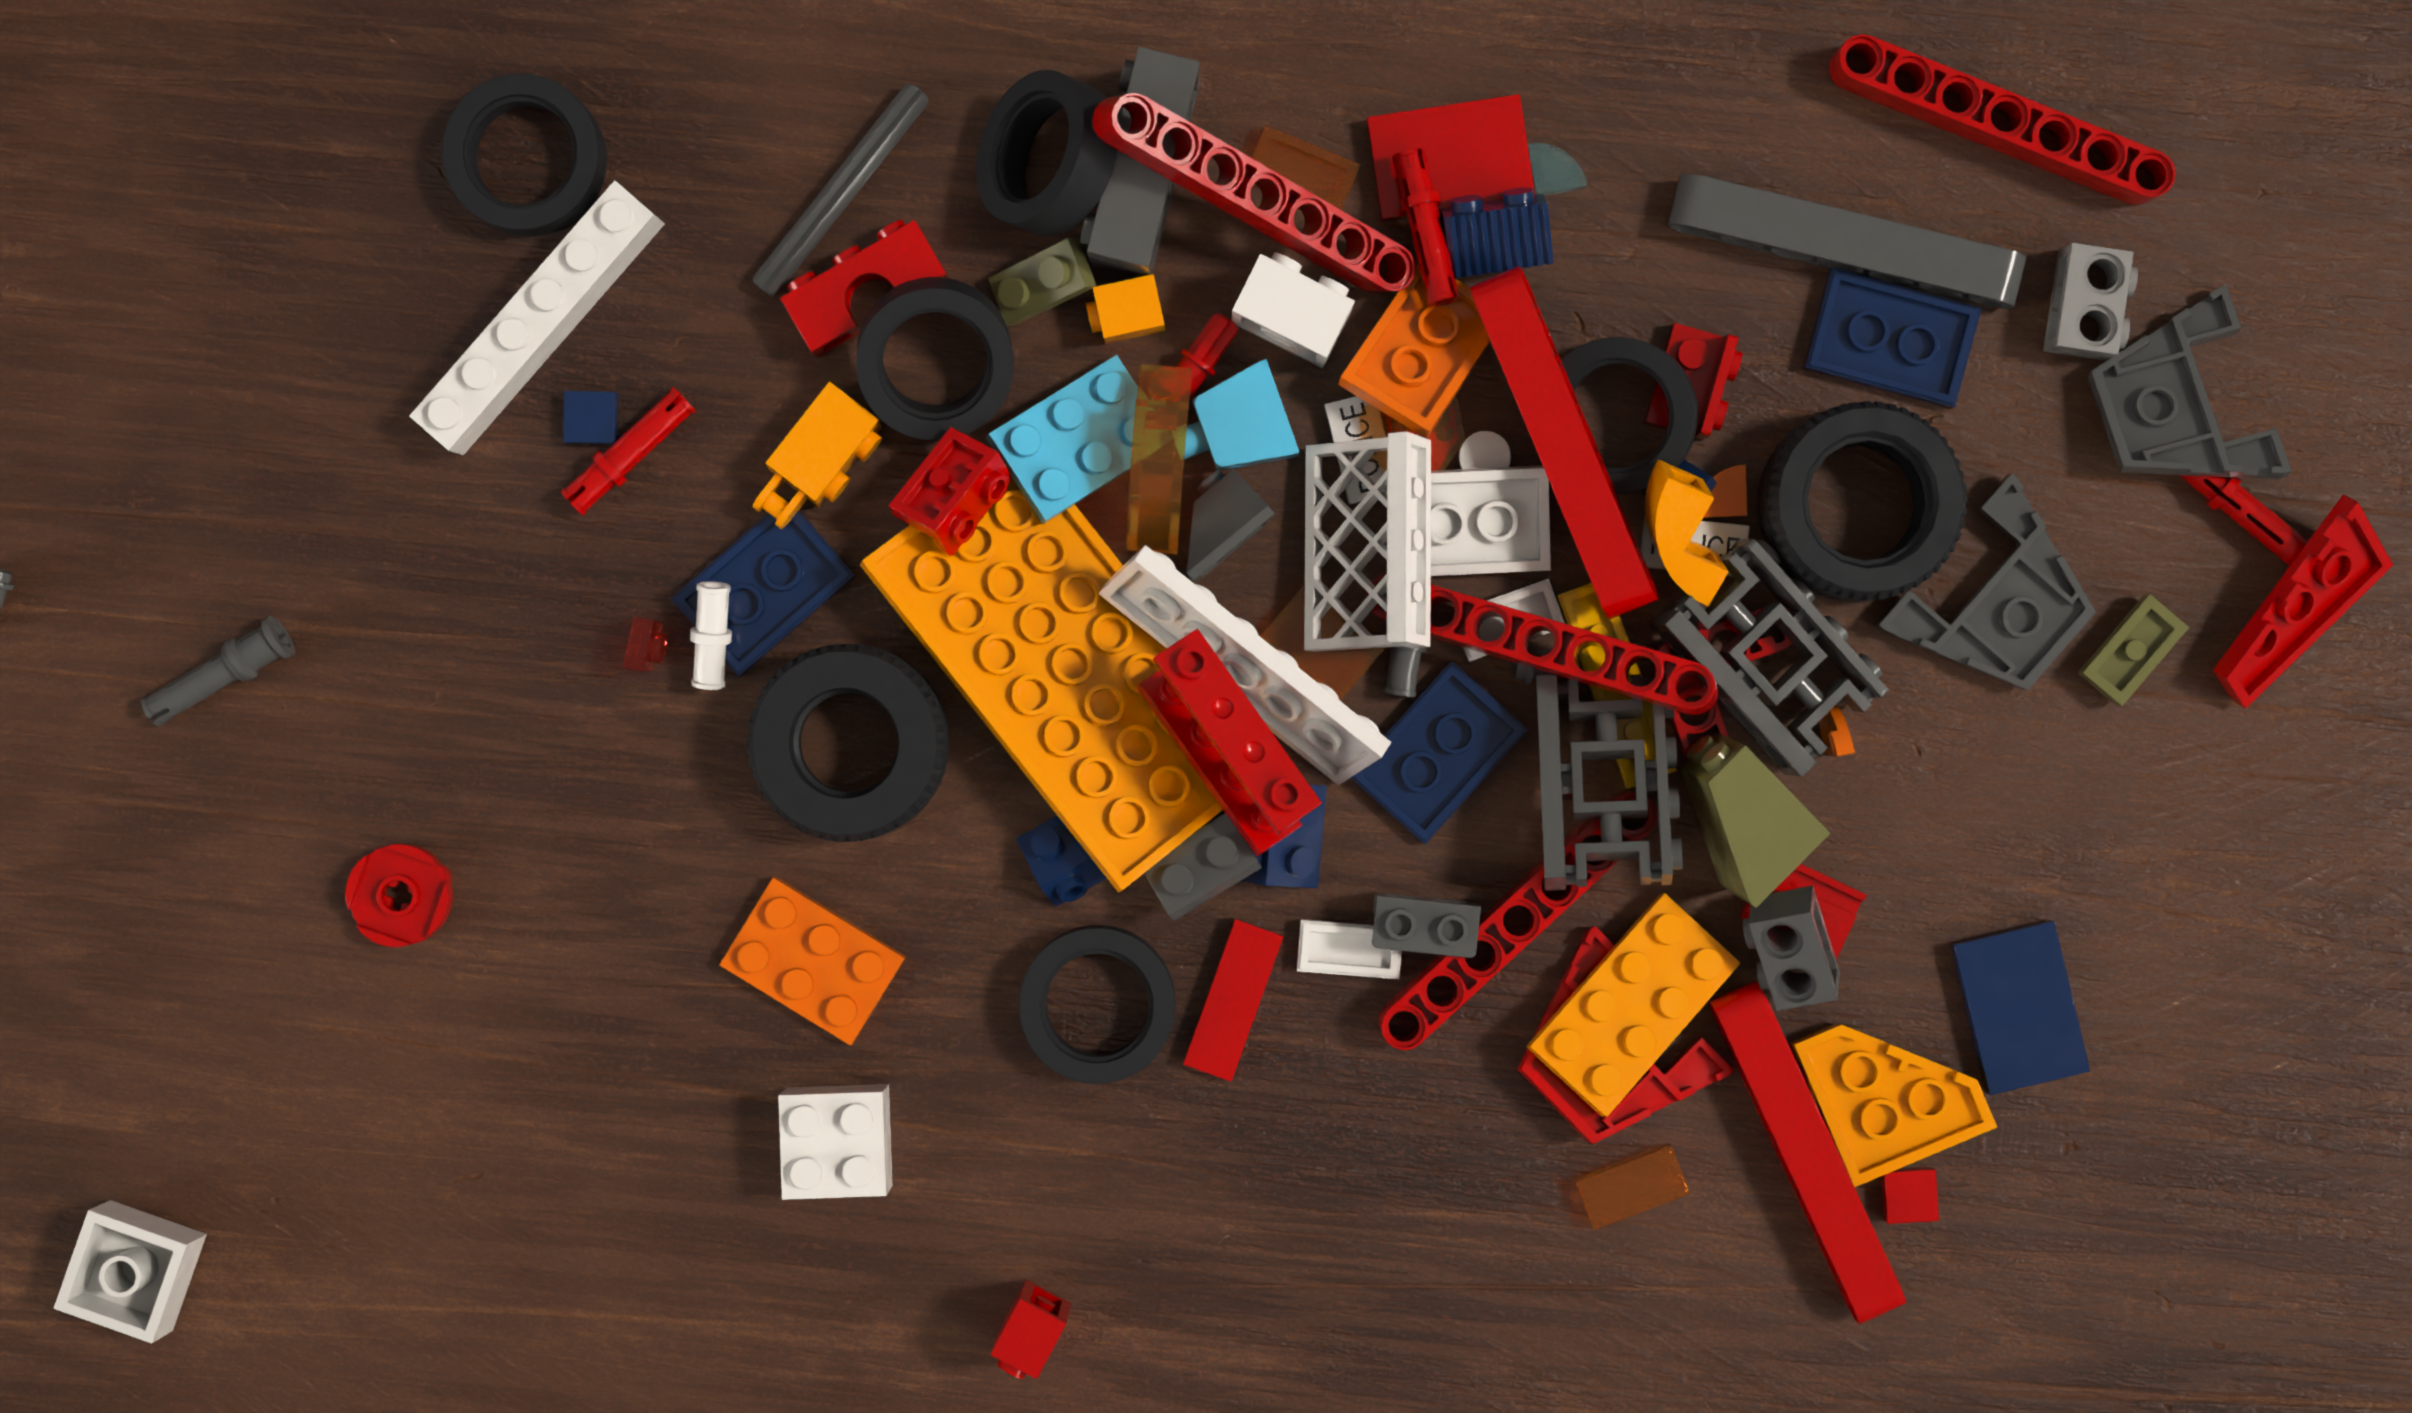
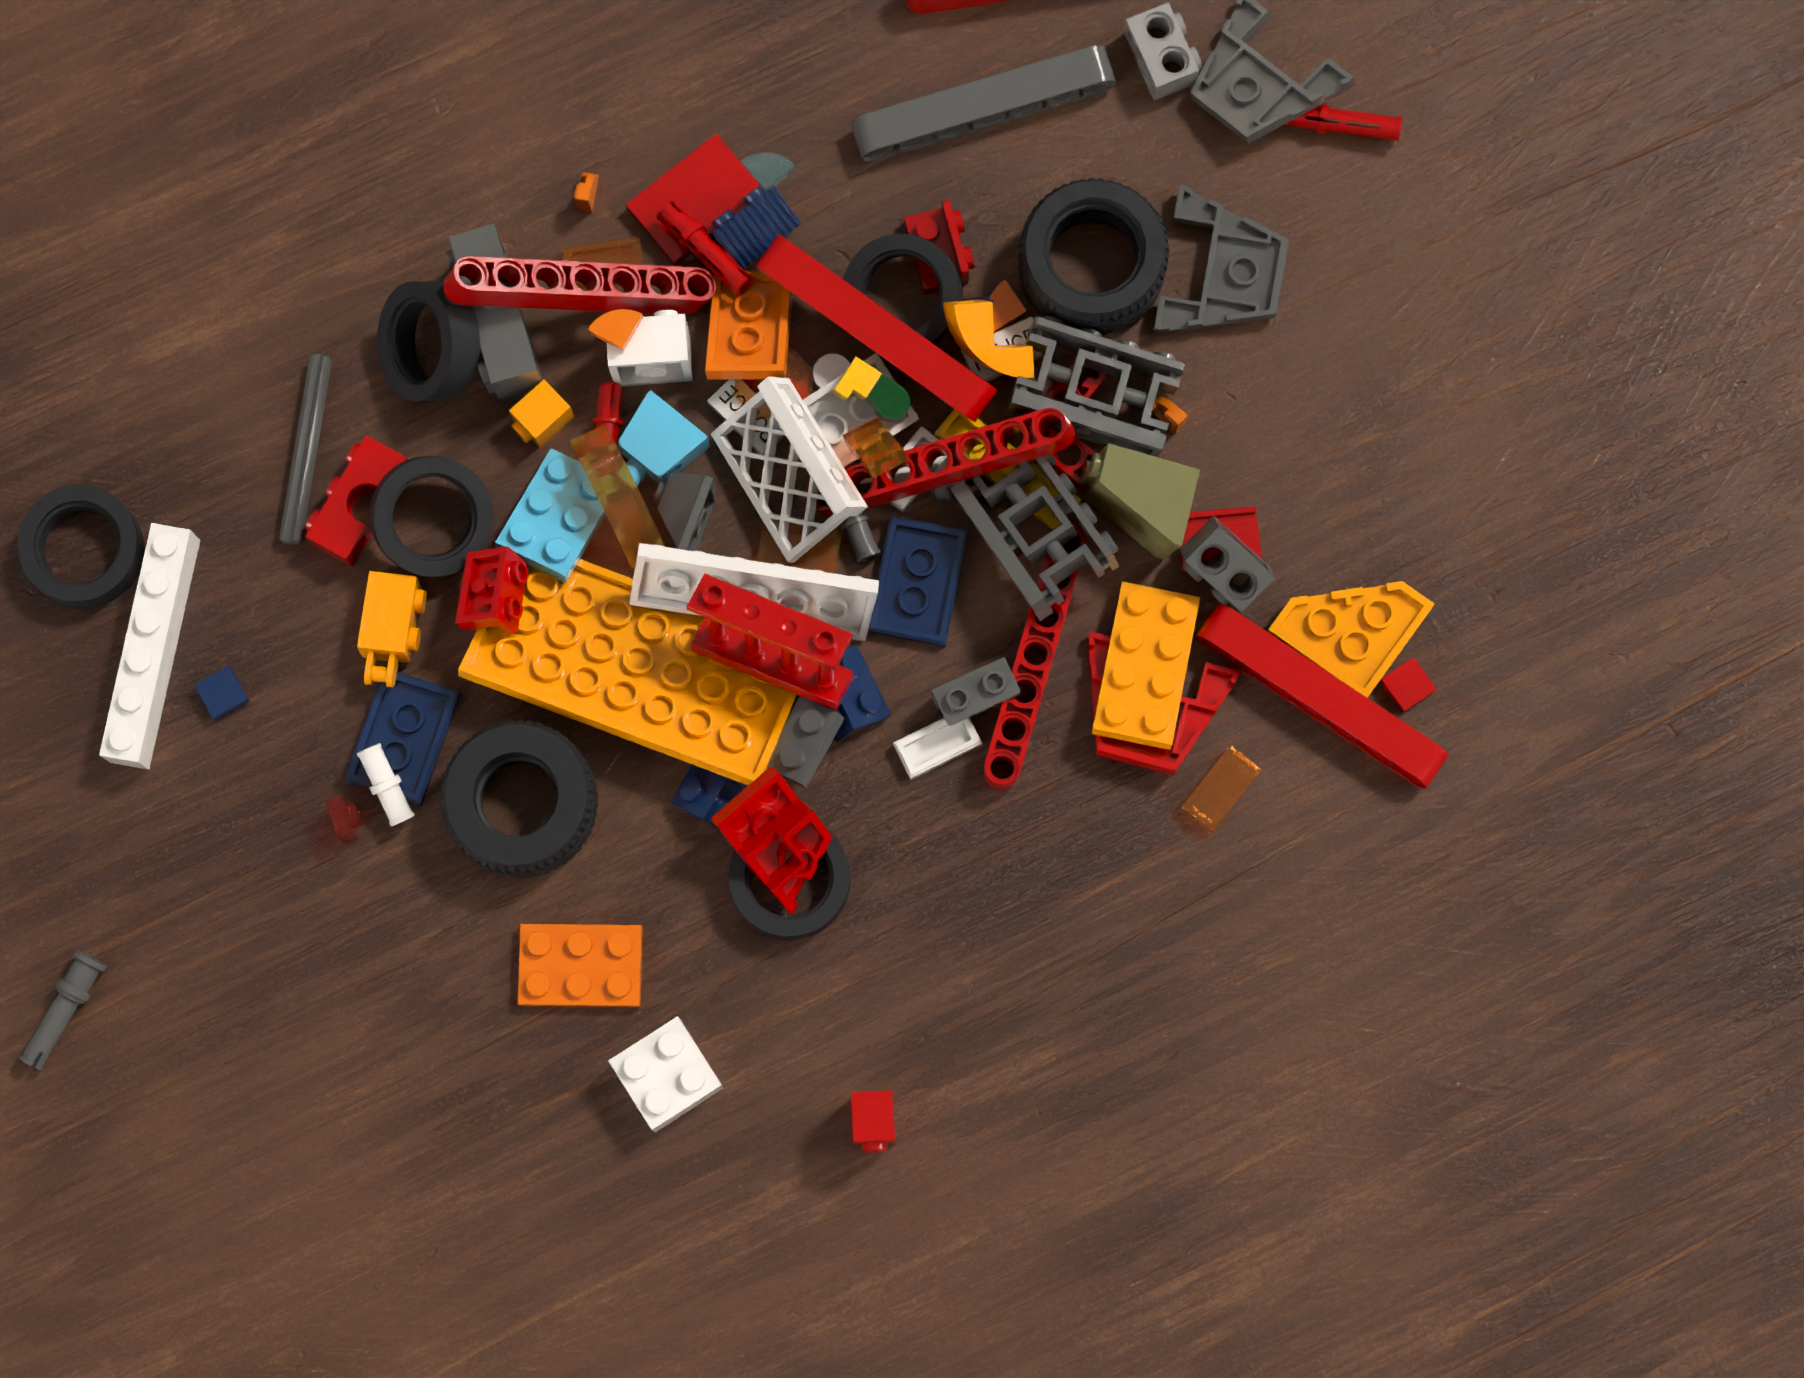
camera: 25 degrees left, 10 degrees down
(373, 909) = (253, 1072): red plate -> none
(633, 446) = (255, 713): red pin -> none
(1042, 281) = (474, 427): olive plate -> none
(1106, 955) = (774, 835): none -> red slope
(1233, 999) = (879, 823): red tile -> none
(1267, 272) = (616, 327): none -> orange tile
(1331, 74) = (586, 192): none -> orange tile
(1479, 583) = (875, 447): none -> clear orange tile
(1527, 529) = (884, 395): none -> leg
(1892, 338) = (1051, 147): dark blue tile -> none
(2020, 1007) = (1402, 520): dark blue tile -> none
(2133, 650) = (1329, 250): olive plate -> none
(2313, 593) = (1419, 149): red wing -> none

